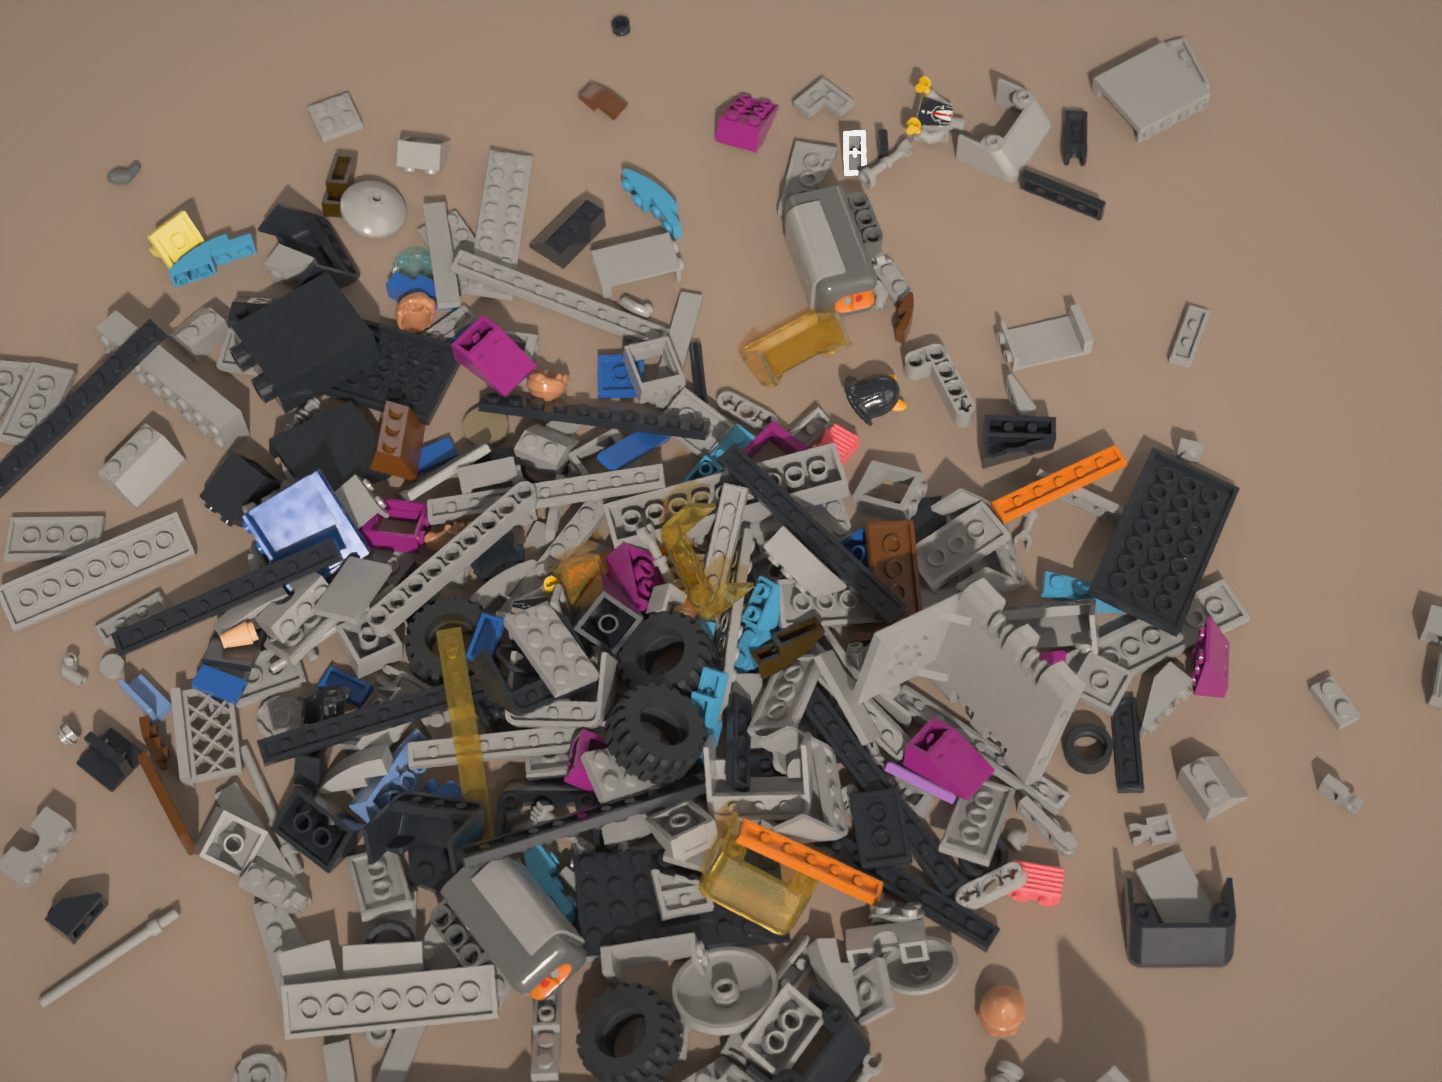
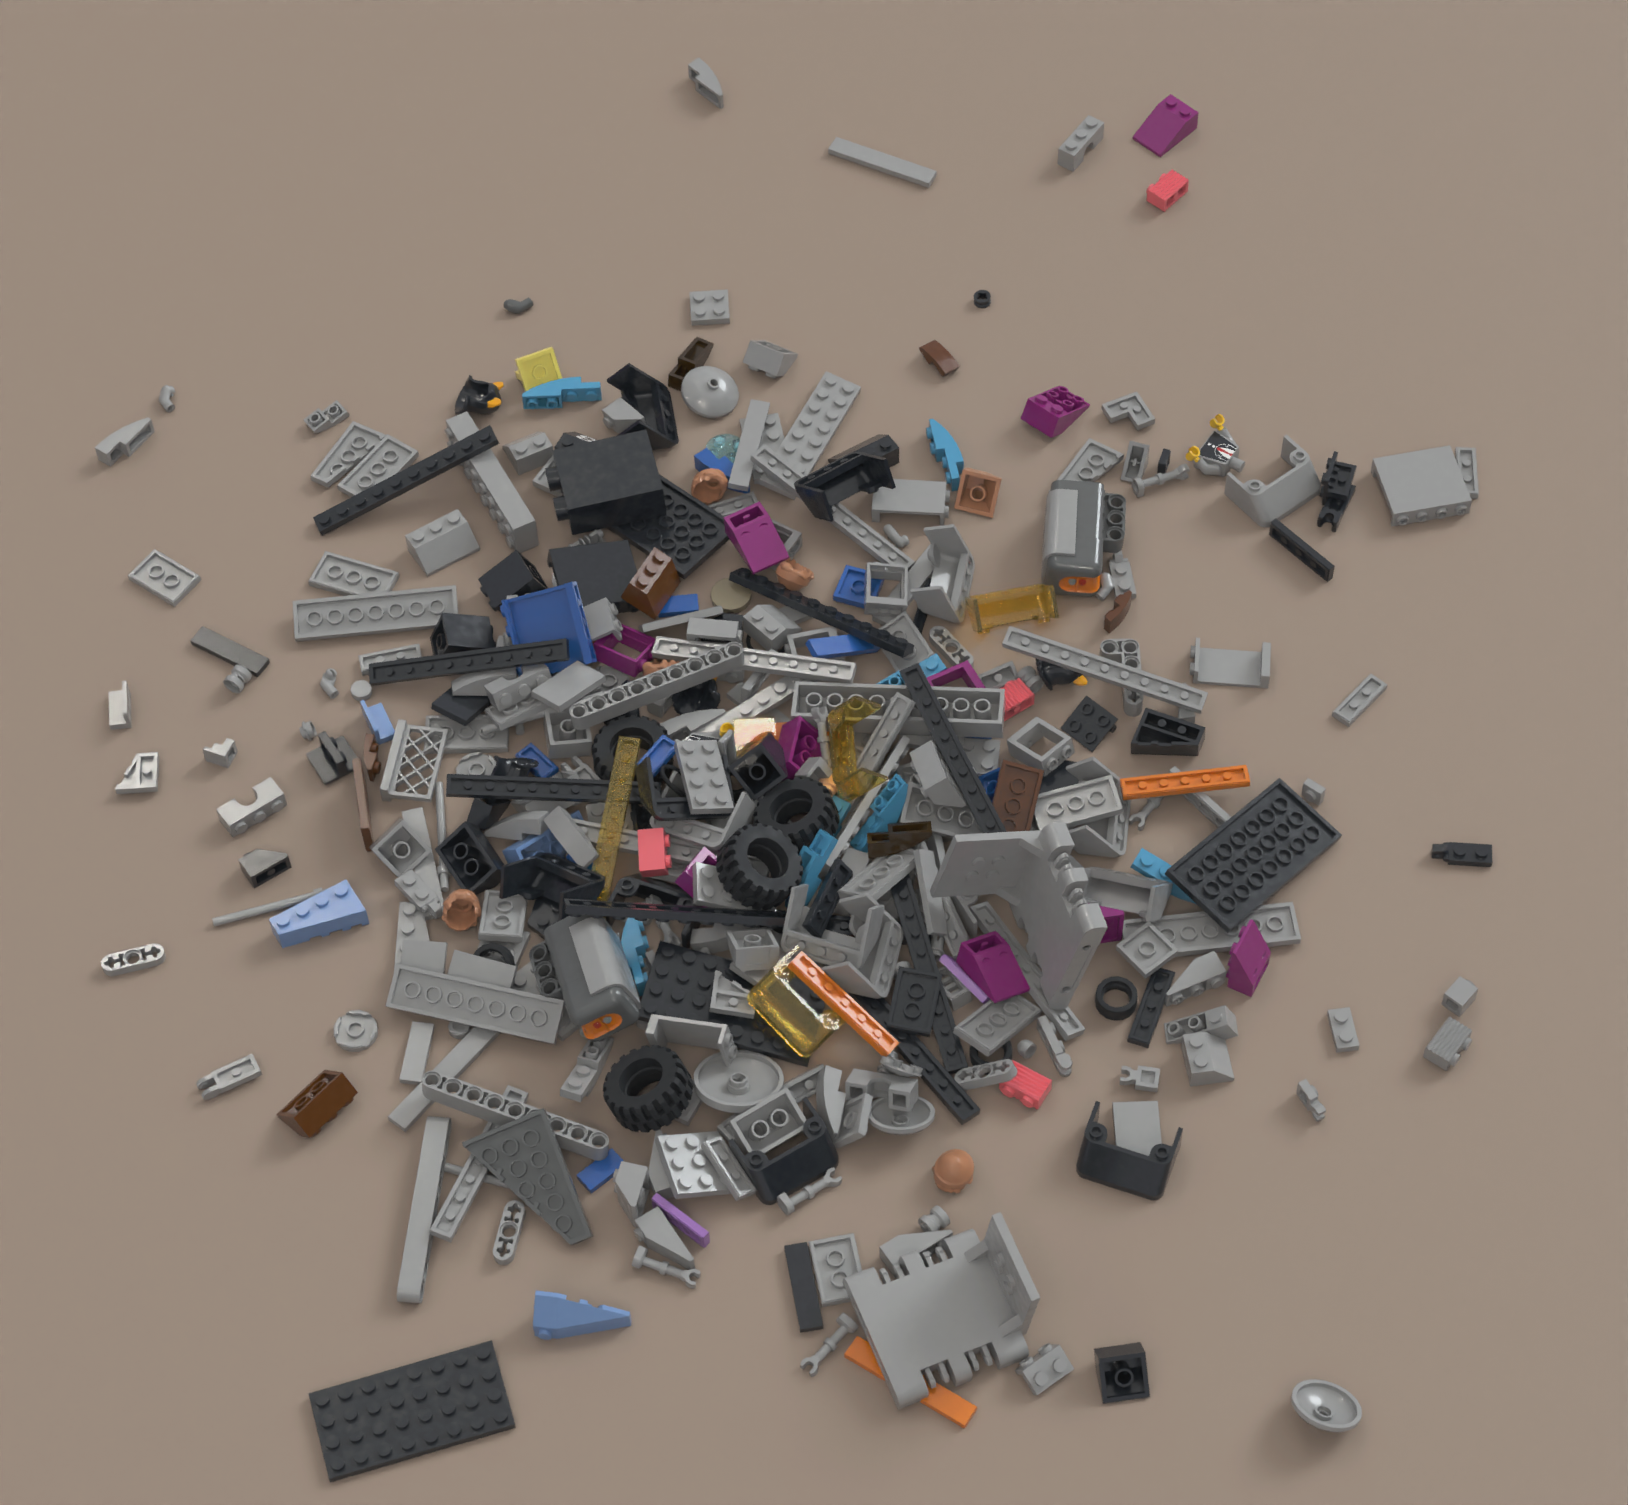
camera: 20 degrees right, 5 degrees down
(119, 290) = (478, 397): none -> black hair
(165, 954) = (319, 915): none -> medium blue wedge
(205, 567) = (461, 633): none -> black slope
(219, 684) = (437, 728): blue tile -> none
(239, 635) = (467, 695): light nougat cone -> none
(329, 892) = (461, 910): none -> nougat hair
(425, 766) = (571, 837): none -> light grey slope
(524, 752) = (653, 852): none -> coral brick
(559, 264) = (841, 480): none -> black windscreen
(705, 233) = (978, 492): none -> nougat slope
(713, 333) = (950, 576): none -> light grey windscreen
(846, 420) = (1029, 677): none -> light grey wheel
(925, 386) = (1105, 669): none -> light grey plate
(928, 450) = (1089, 723): none -> black hinge
(1068, 111) = (1337, 479): none -> black bracket
(1204, 742) = (1215, 1021): none -> light grey slope
(1368, 468) = (1463, 854): none -> black hinge

